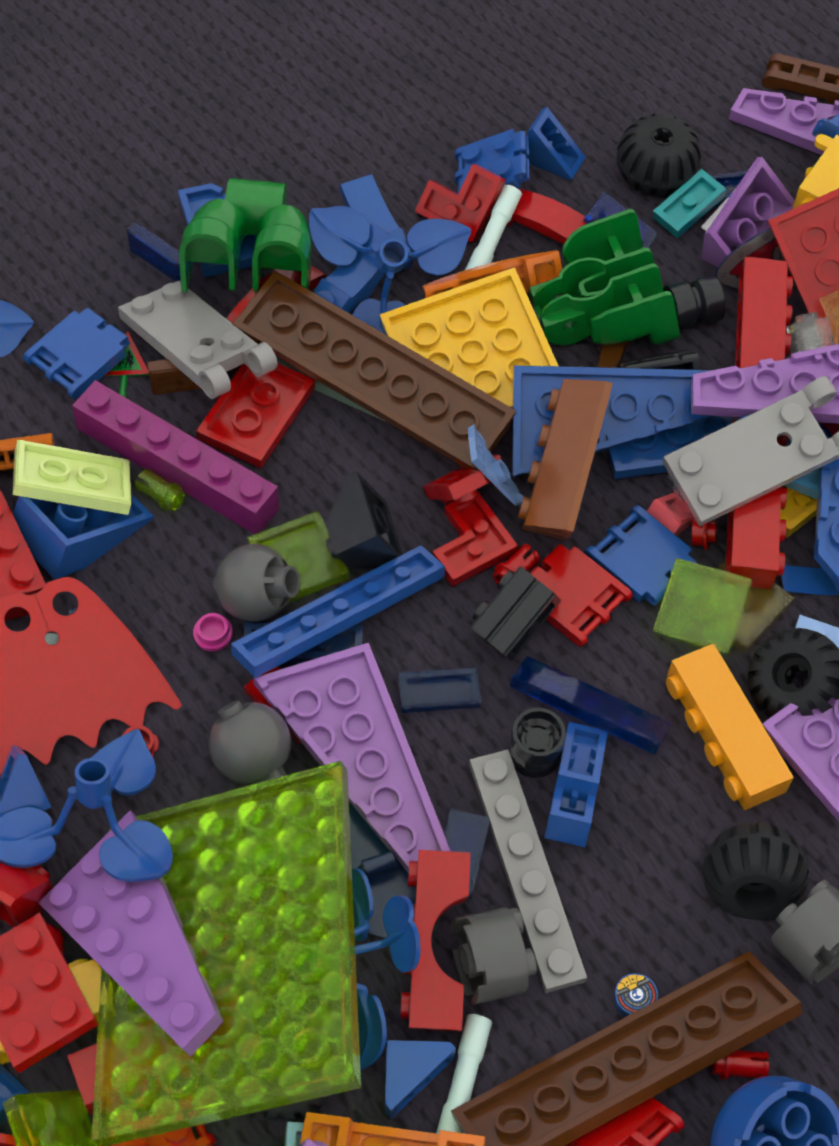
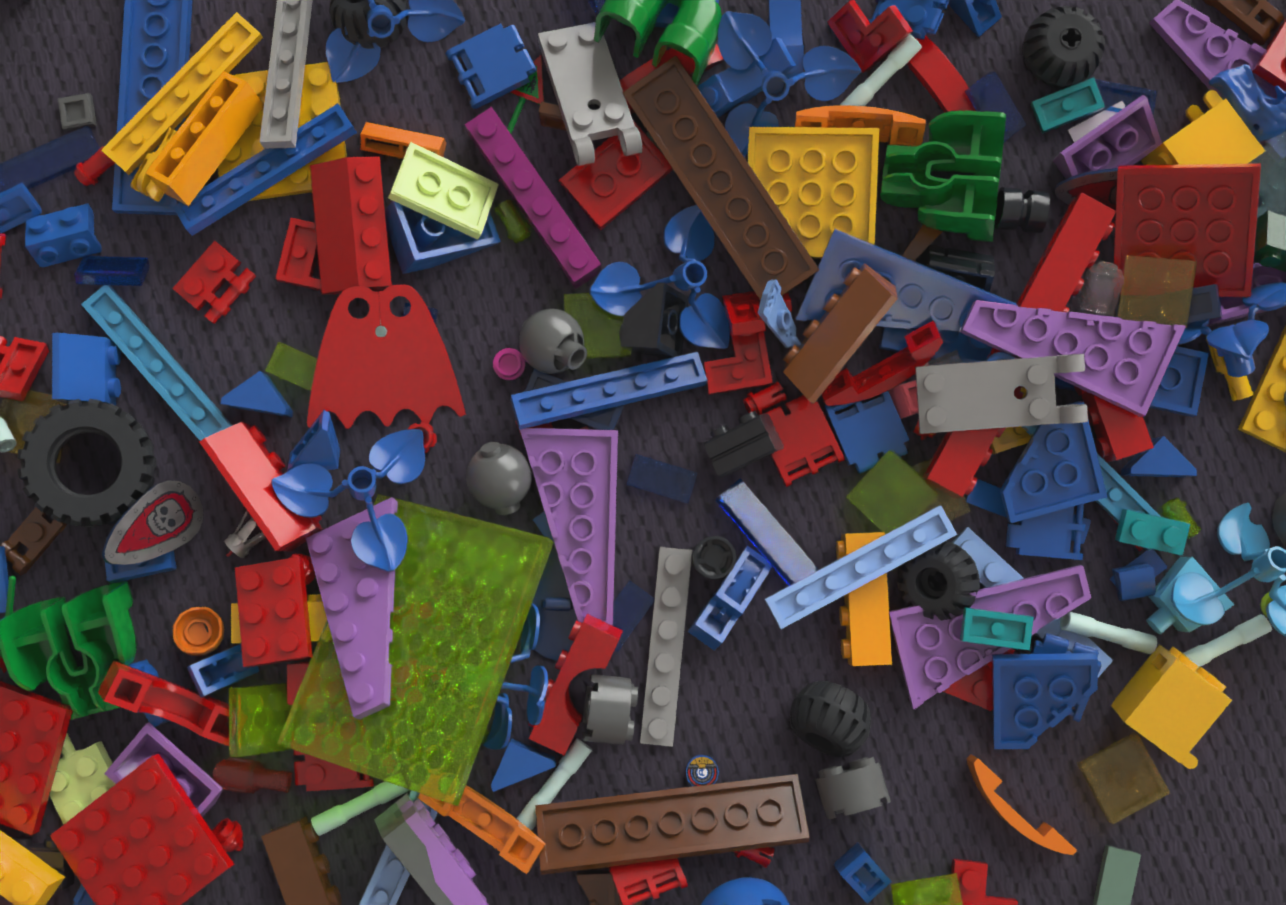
camera: 20 degrees right, 25 degrees up
(359, 437) = (693, 237): none -> blue plant
(637, 490) = (888, 373): none -> red slope
(703, 684) = (860, 567): none -> light blue plate

